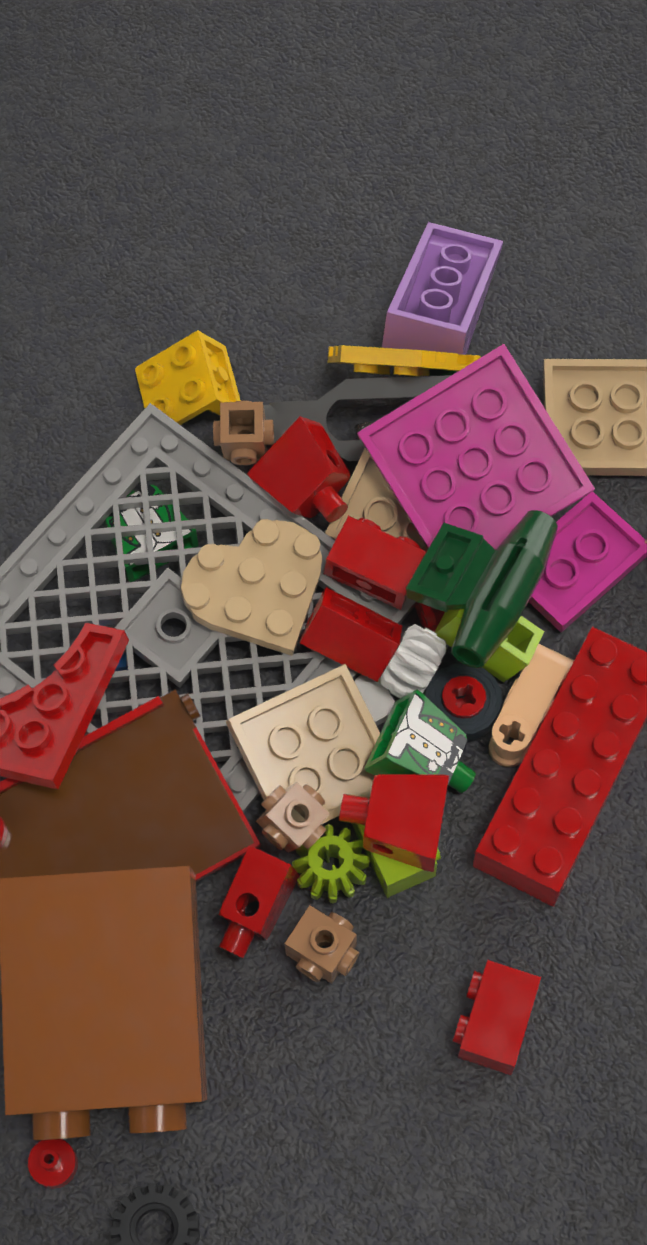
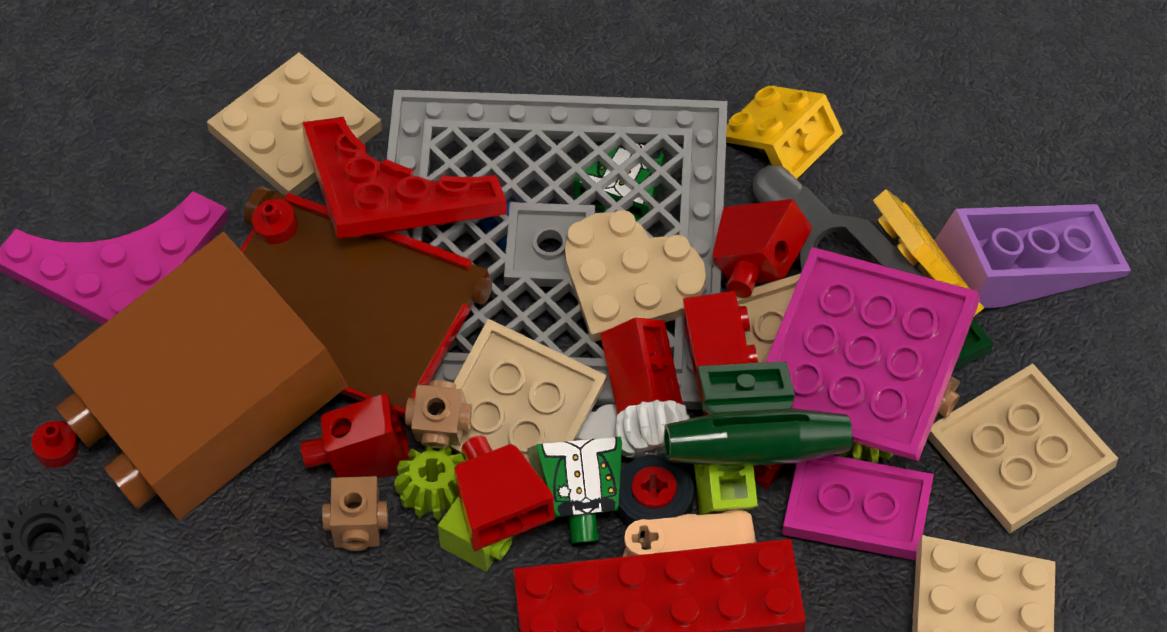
camera: 55 degrees right, 10 degrees down
(243, 431) = (751, 173): medium nougat brick -> none

